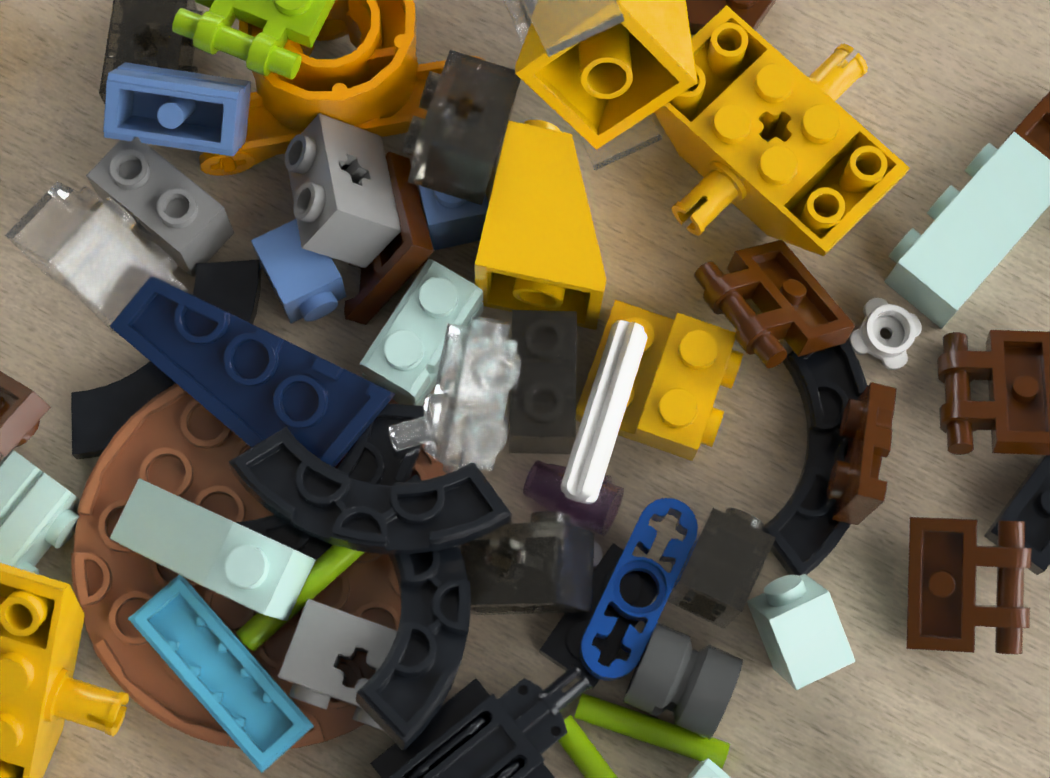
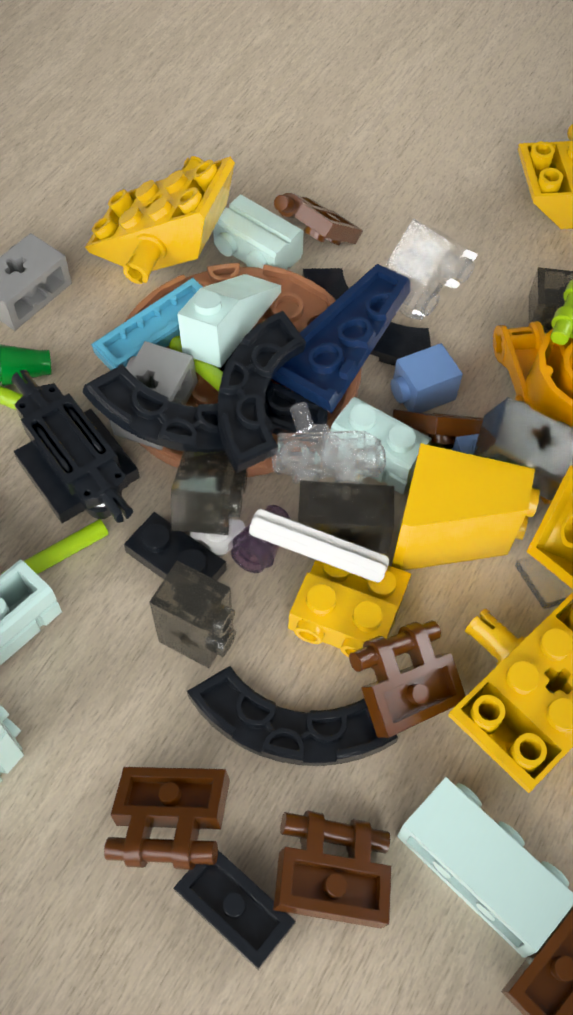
camera: 95 degrees right, 15 degrees down
(163, 203) = (467, 305): light grey brick -> none
(177, 109) = (525, 290): medium blue brick -> none
(341, 191) = (473, 389): light grey brick -> none
(650, 730) = (89, 584): lime piece -> none
(674, 552) = (176, 545): blue beam -> none
(683, 681) = (114, 601): dark grey wheel -> none
(800, 630) = (144, 678): light aqua brick -> none
(869, 430) = (275, 728): reddish brown wing -> none
(902, 326) = (385, 765): white plate -> none

